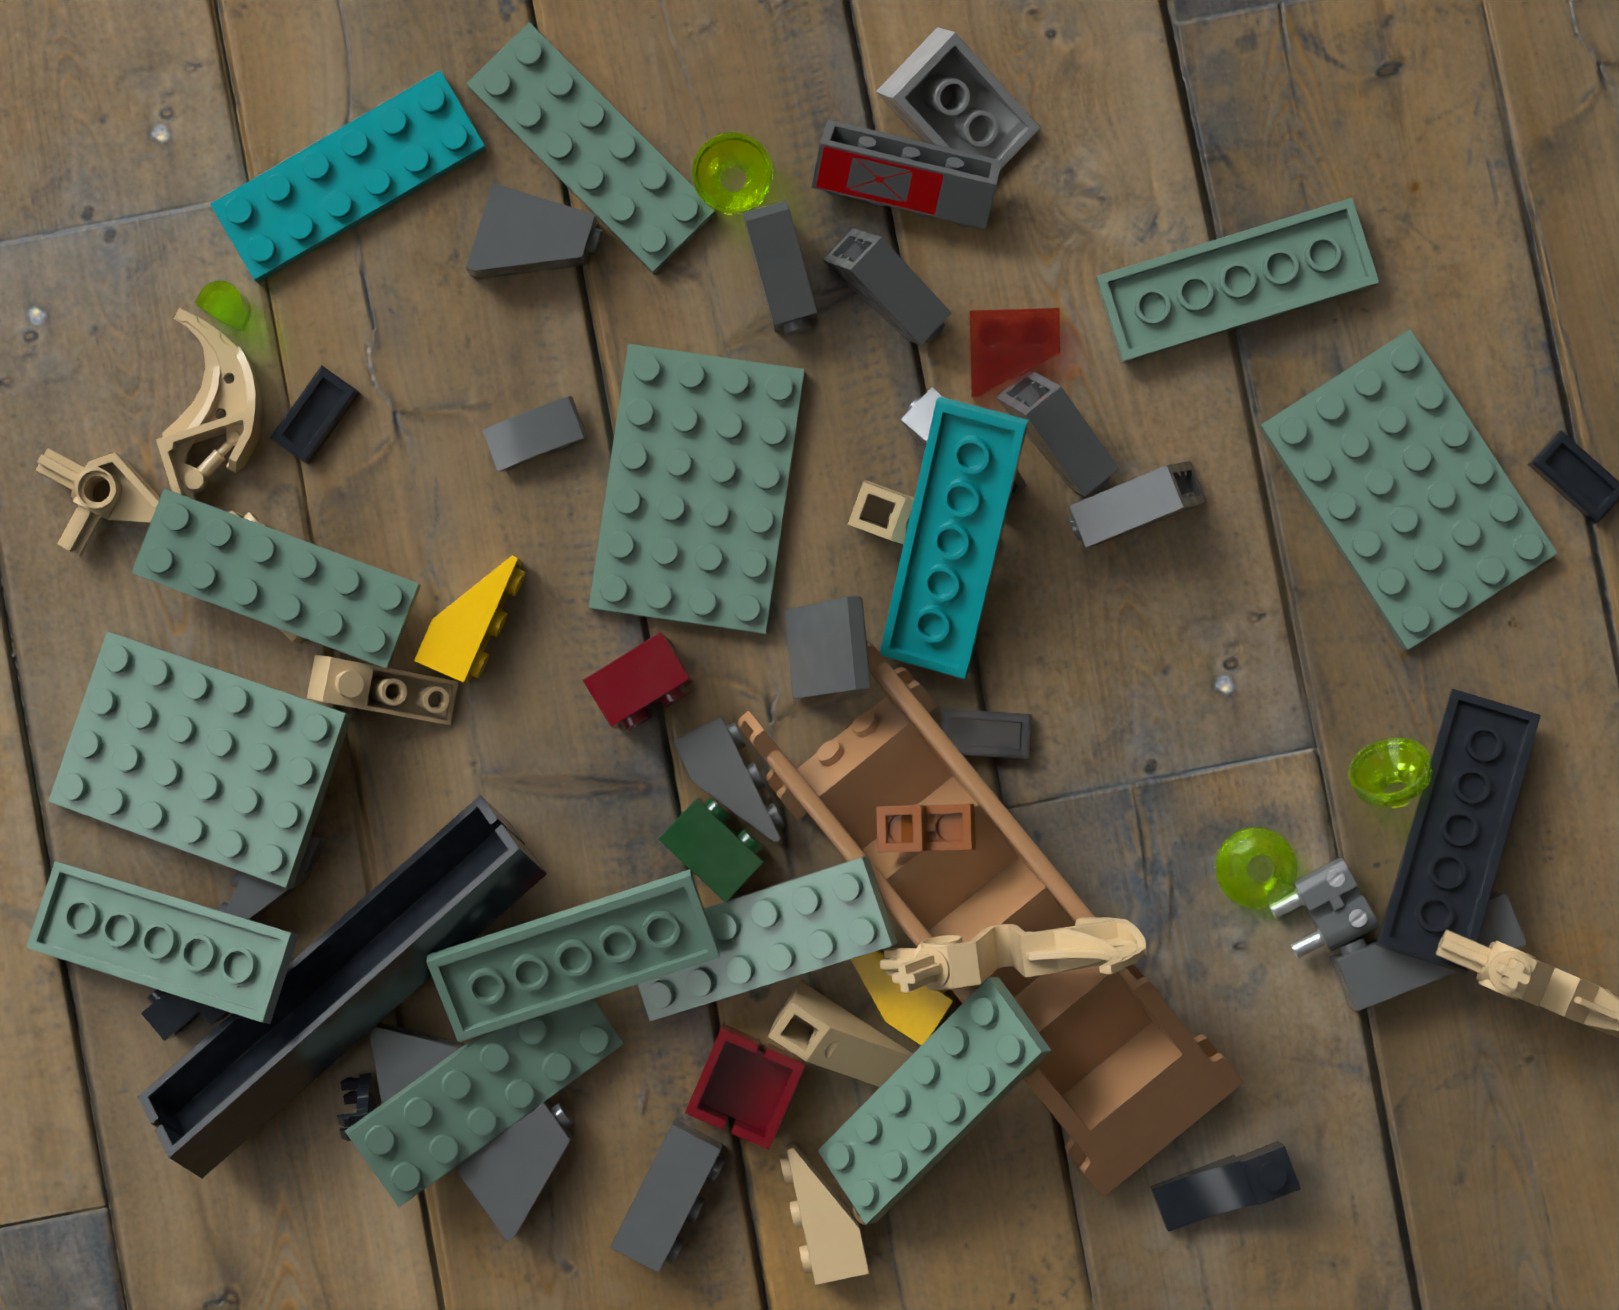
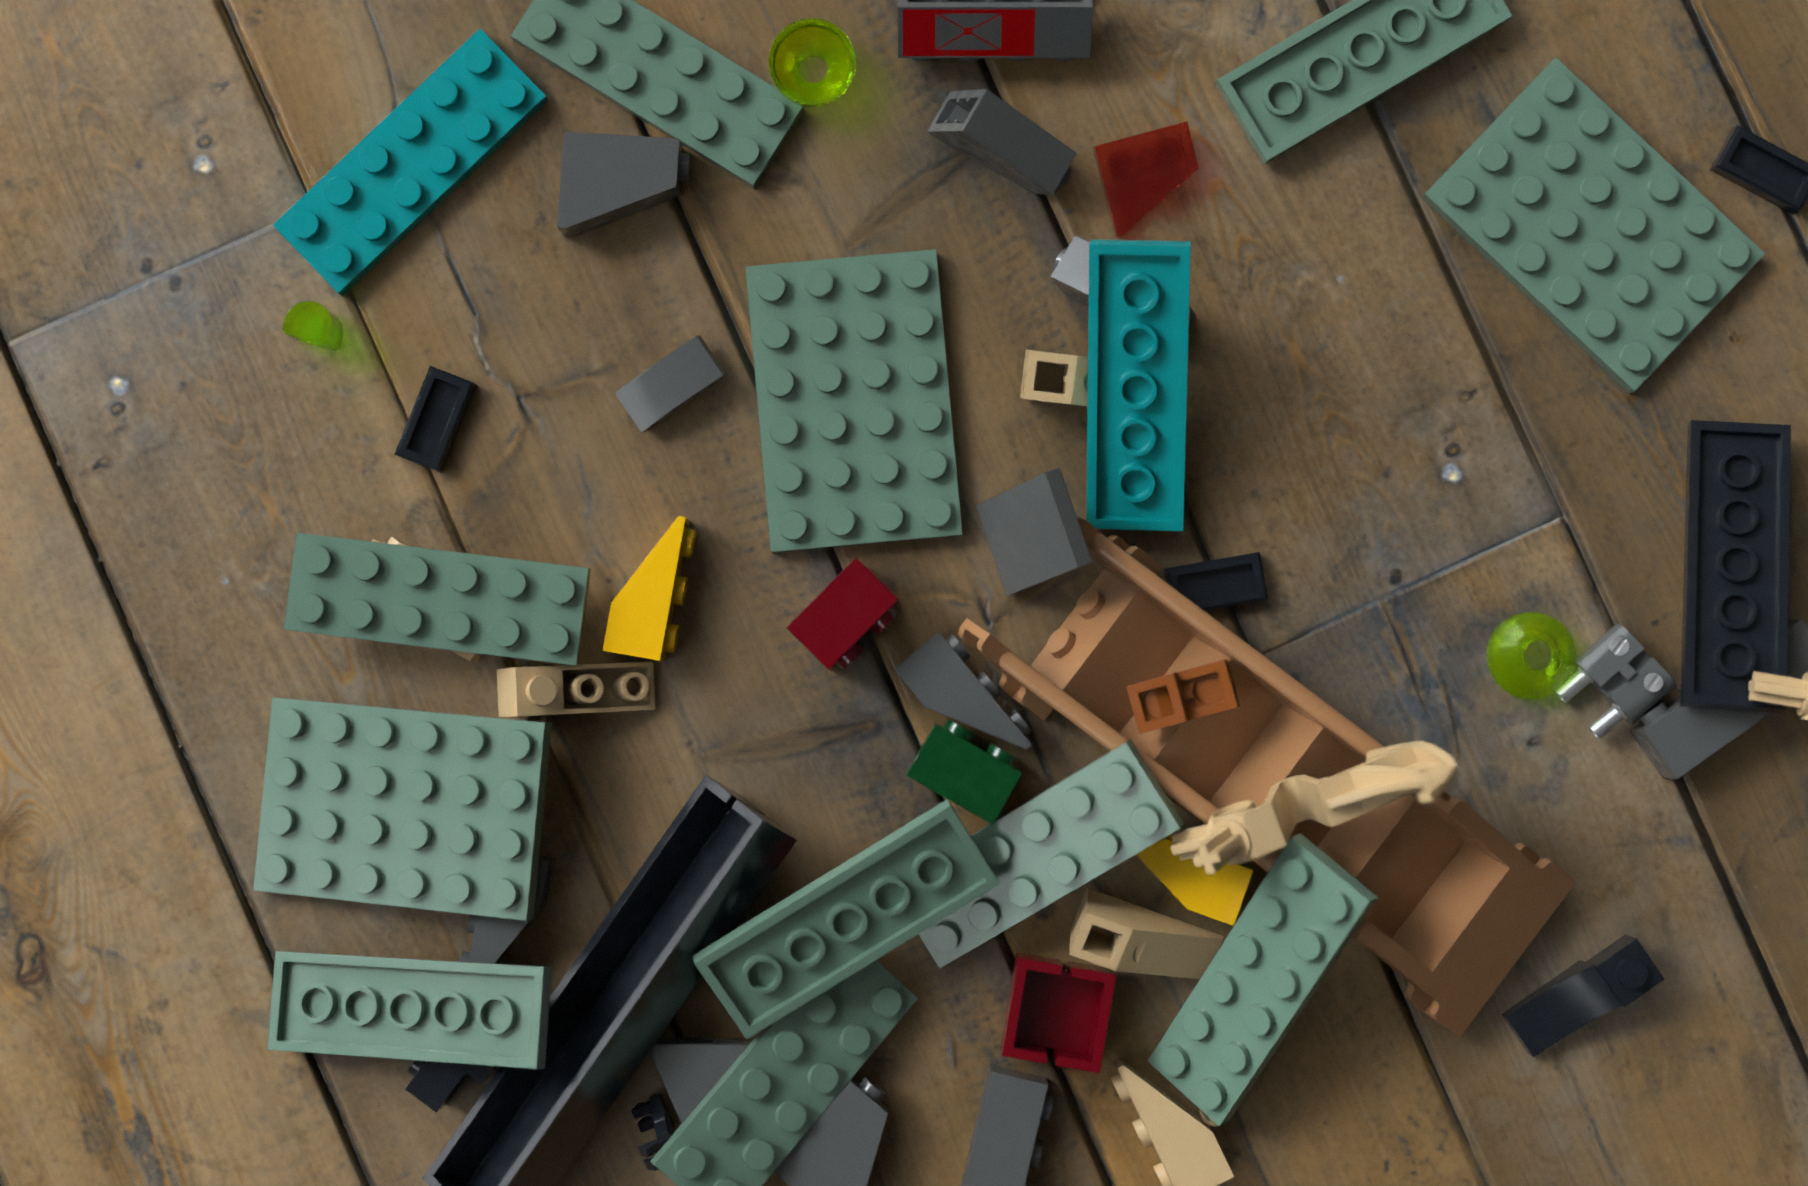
camera: 15 degrees left, 0 degrees up
(130, 495) = (262, 549): tan piece -> none
(780, 267) = (886, 148): dark grey slope -> none
(1059, 432) = (1220, 250): dark grey slope -> none
(1136, 504) = (1316, 307): slope -> none
(1387, 763) = (1646, 511): clear neon green piece -> none

